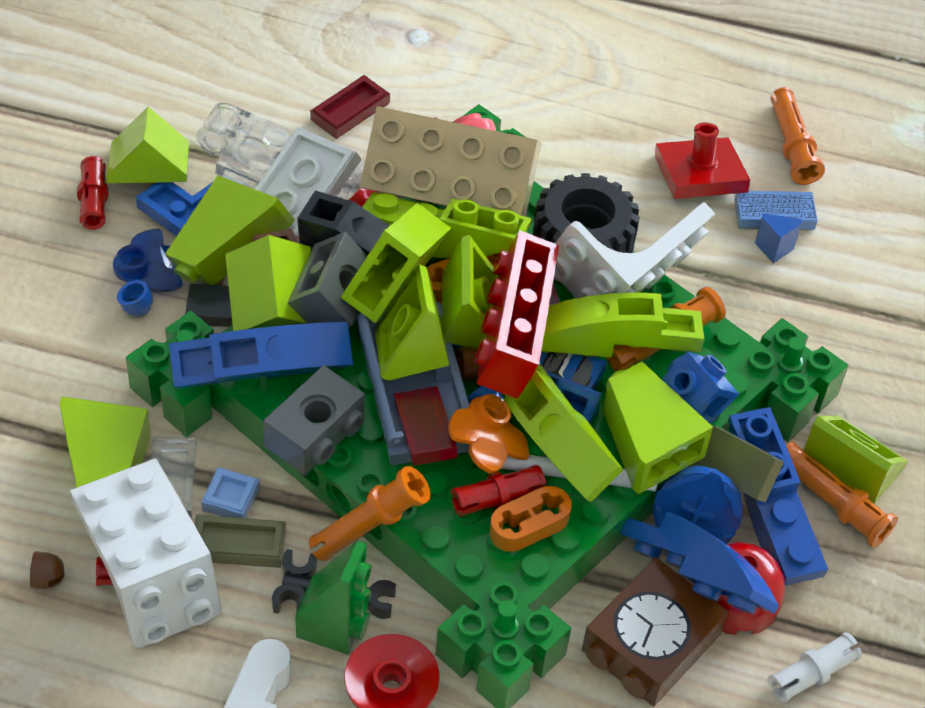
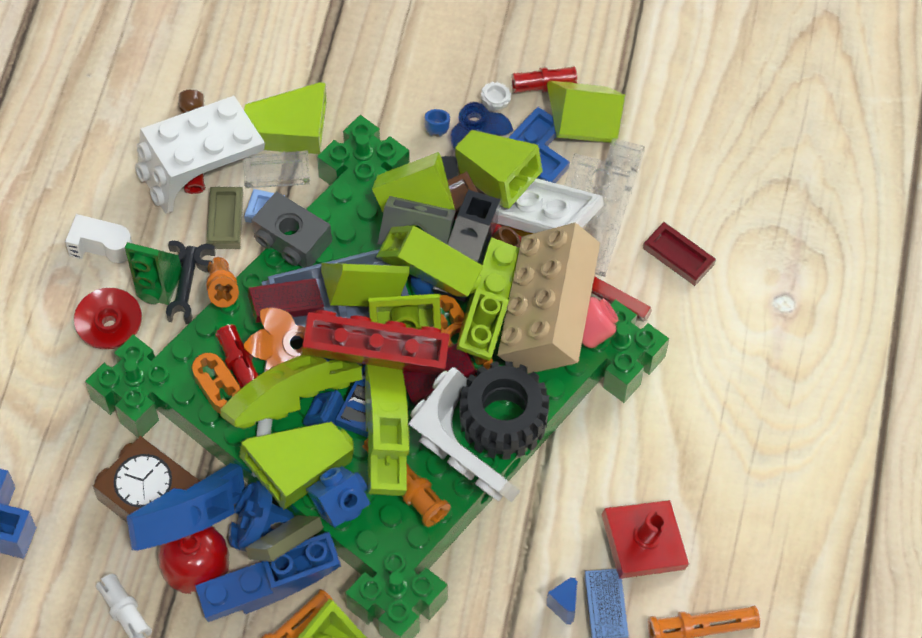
camera: 90 degrees right, 10 degrees up
(107, 240) = (495, 96): none -> white piece
(260, 353) = (345, 192): blue slope -> none

